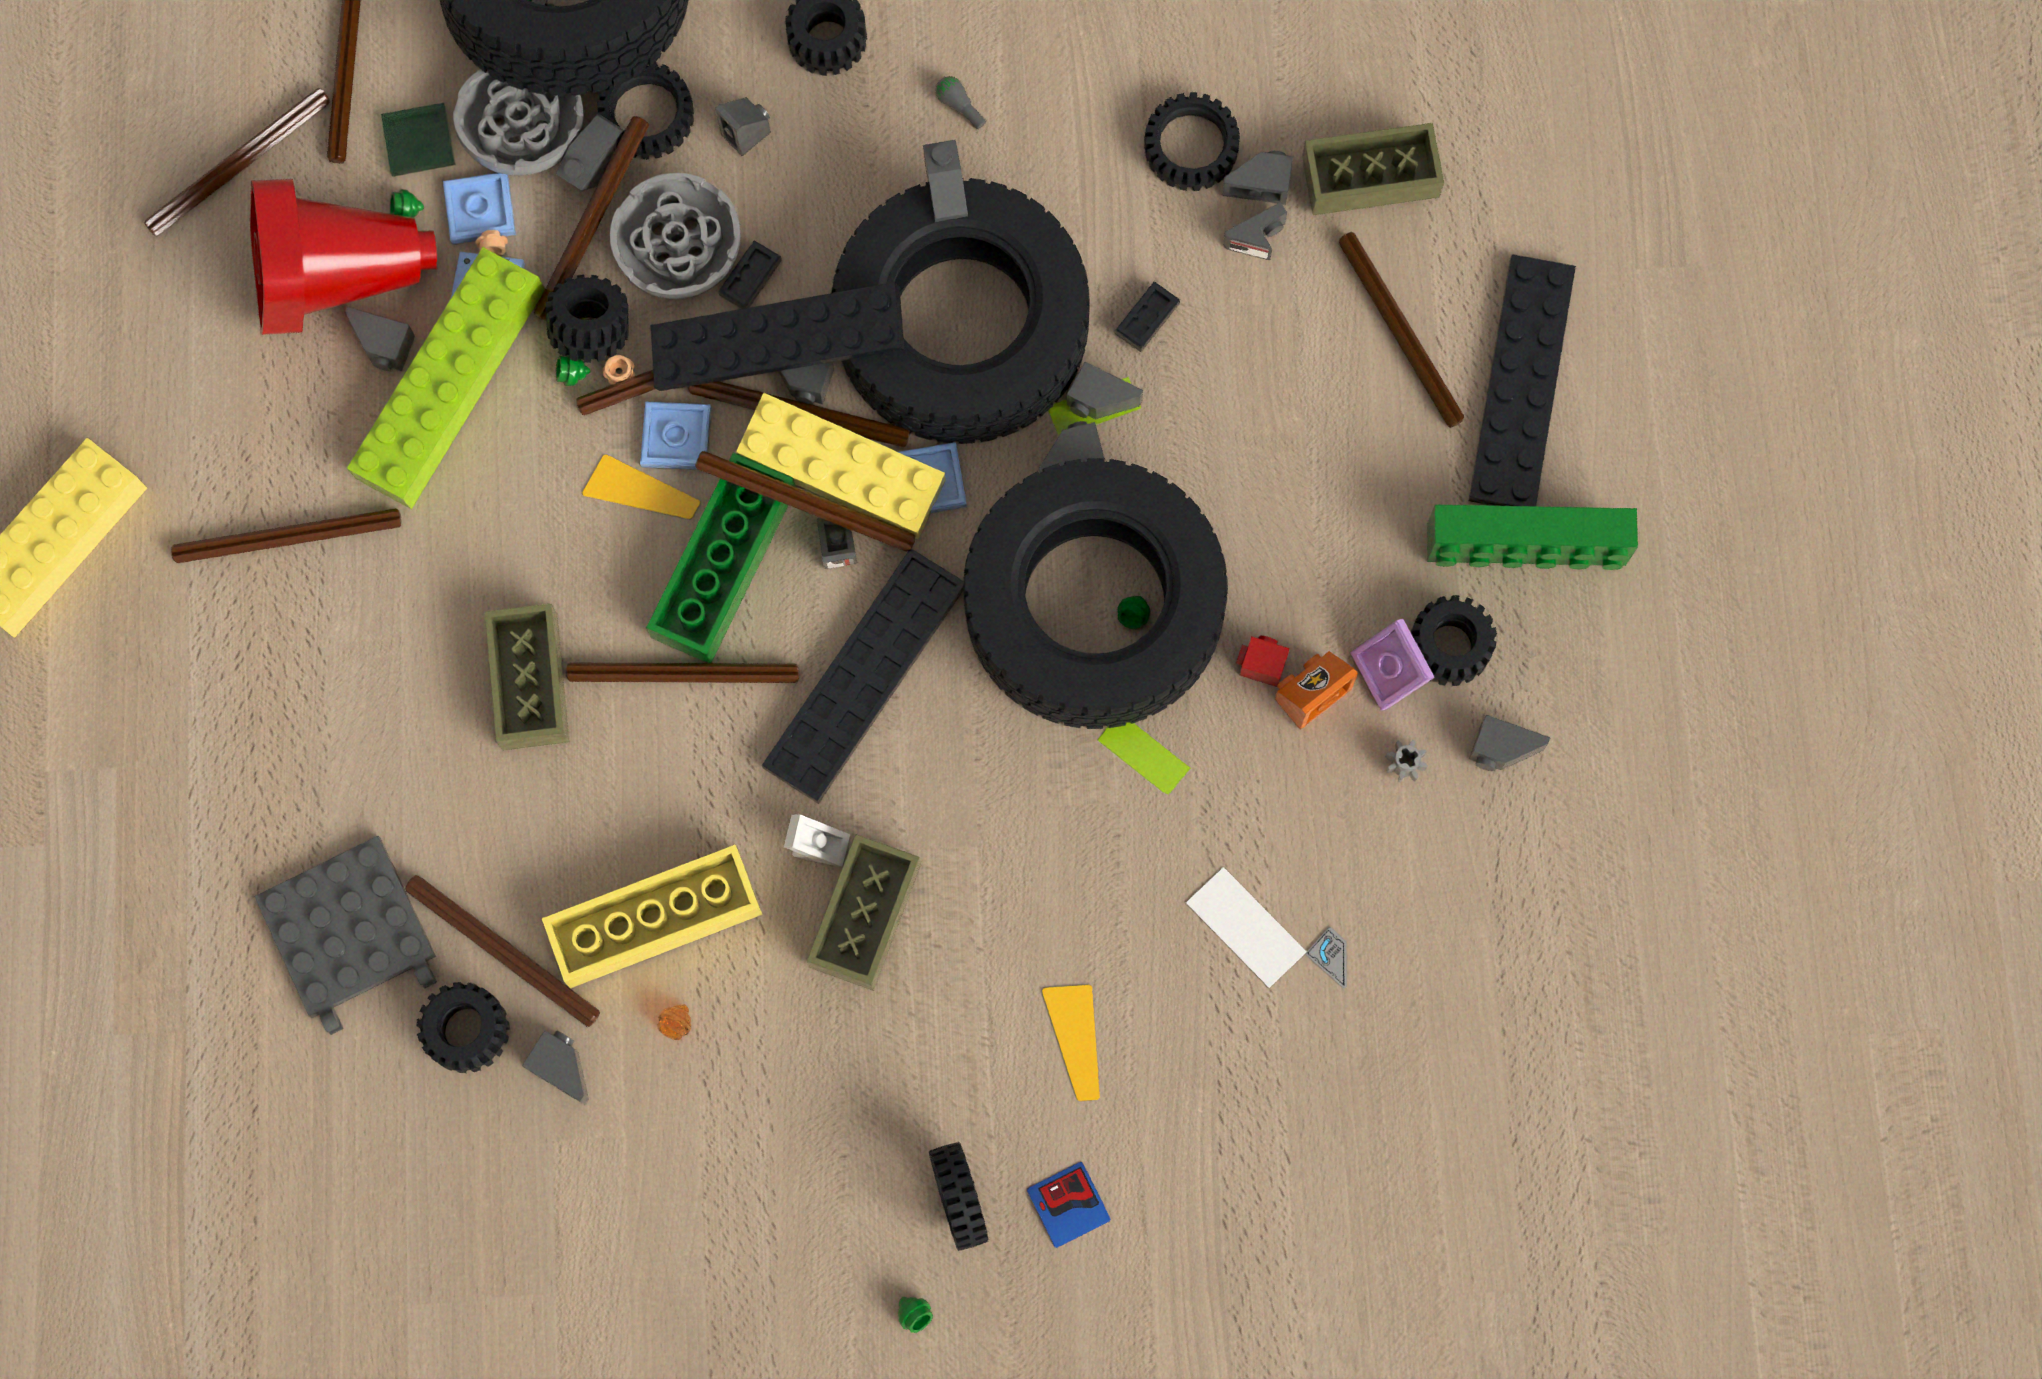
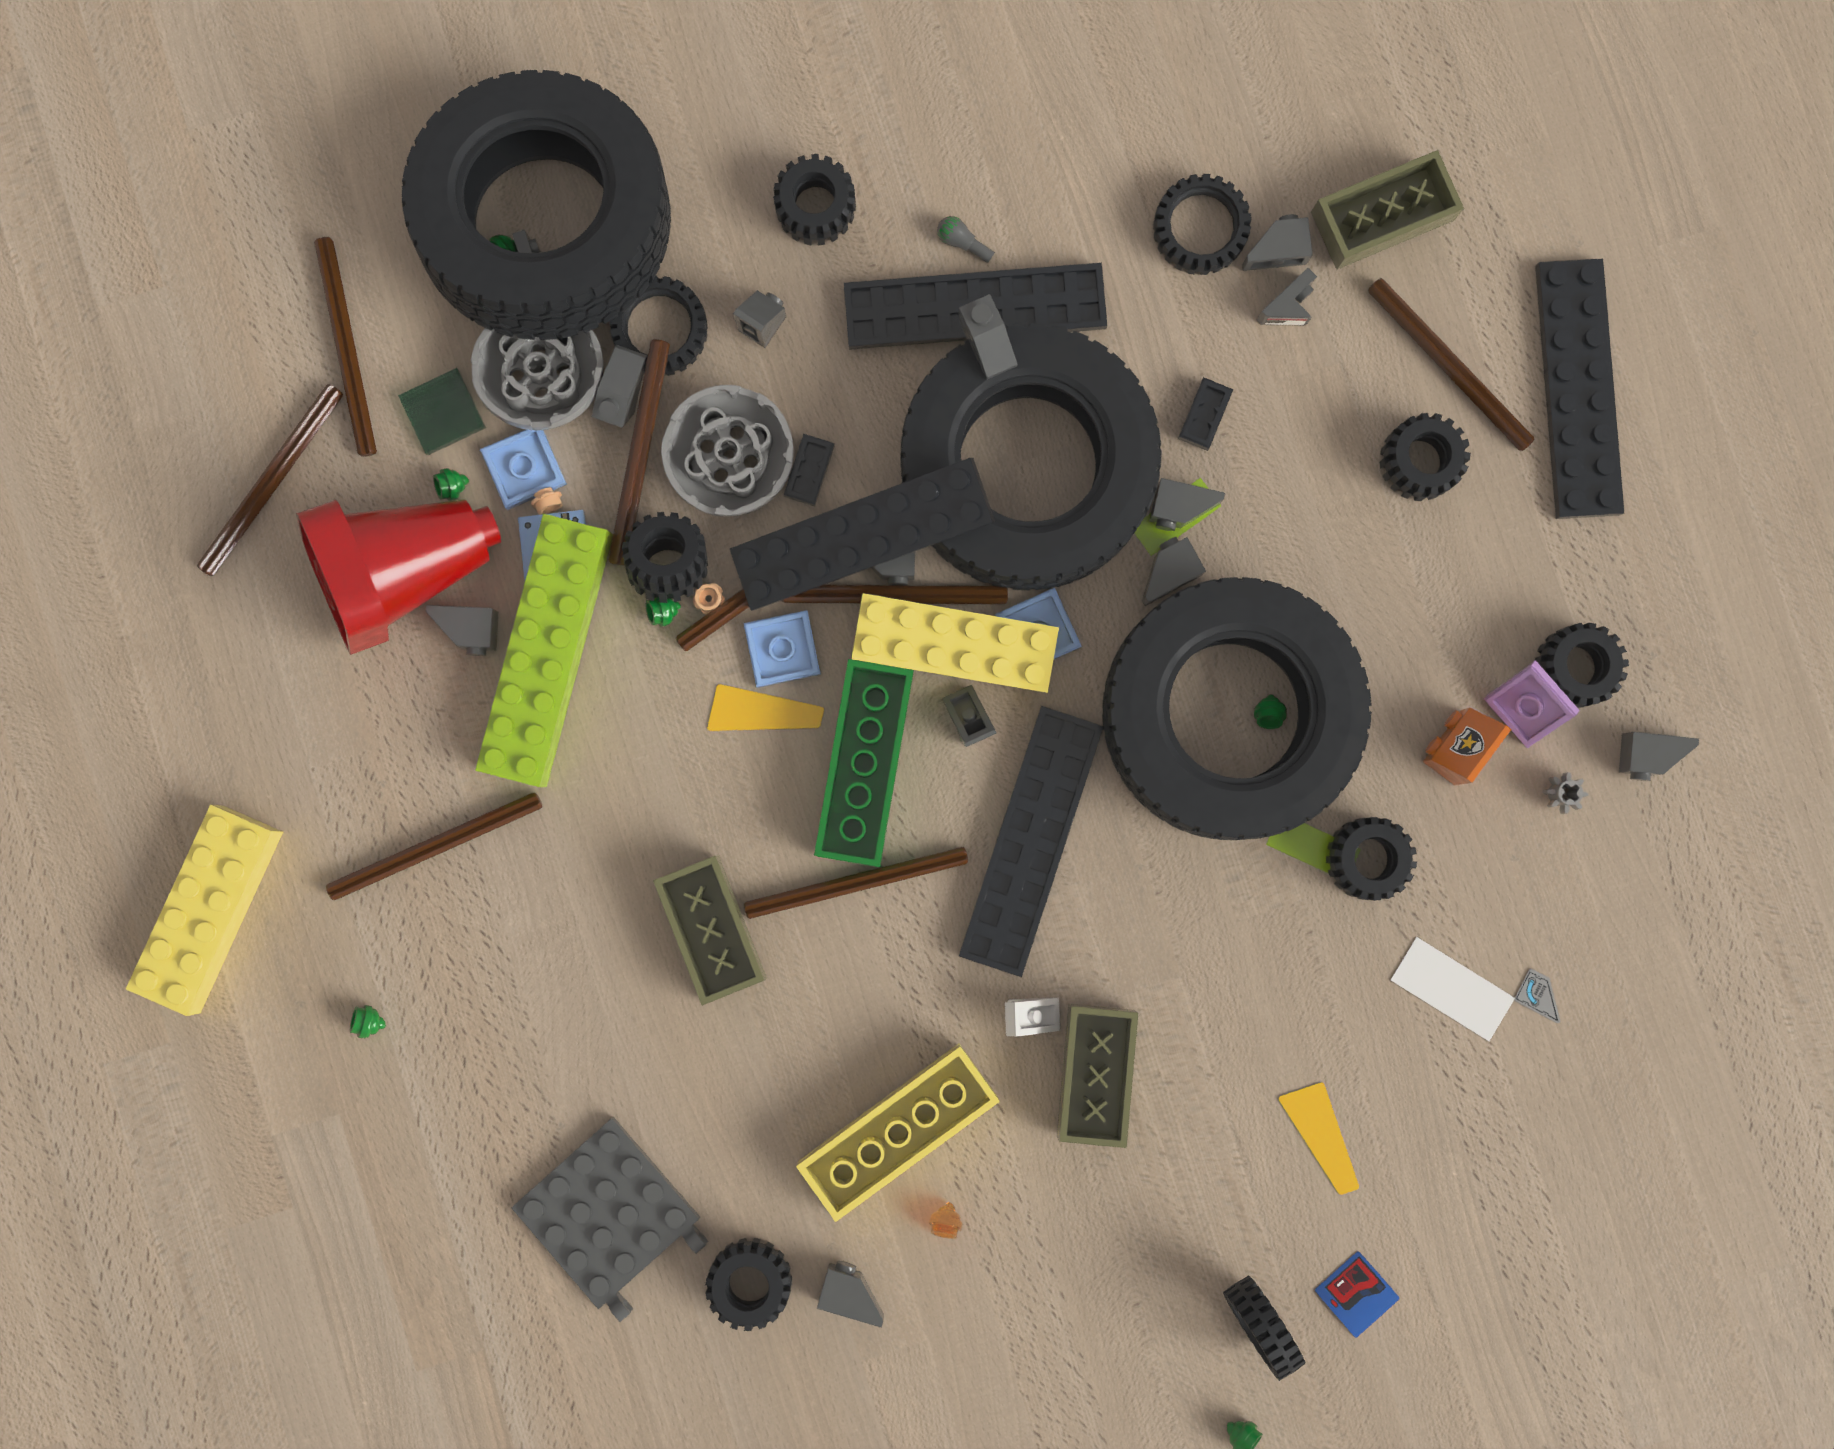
camera: 20 degrees left, 10 degrees up
(170, 683) = (366, 1021): none -> green plate
(502, 951) = (761, 1196): reddish brown axle -> none
(805, 501) = (931, 691): reddish brown axle -> none
(894, 157) = (928, 306): none -> black plate
(1194, 746) = (1398, 858): none -> black tyre
(1263, 660) = (1406, 729): red brick -> none
(1352, 381) = (1445, 441): none -> black tyre
(1531, 536) = (1634, 545): green brick -> none

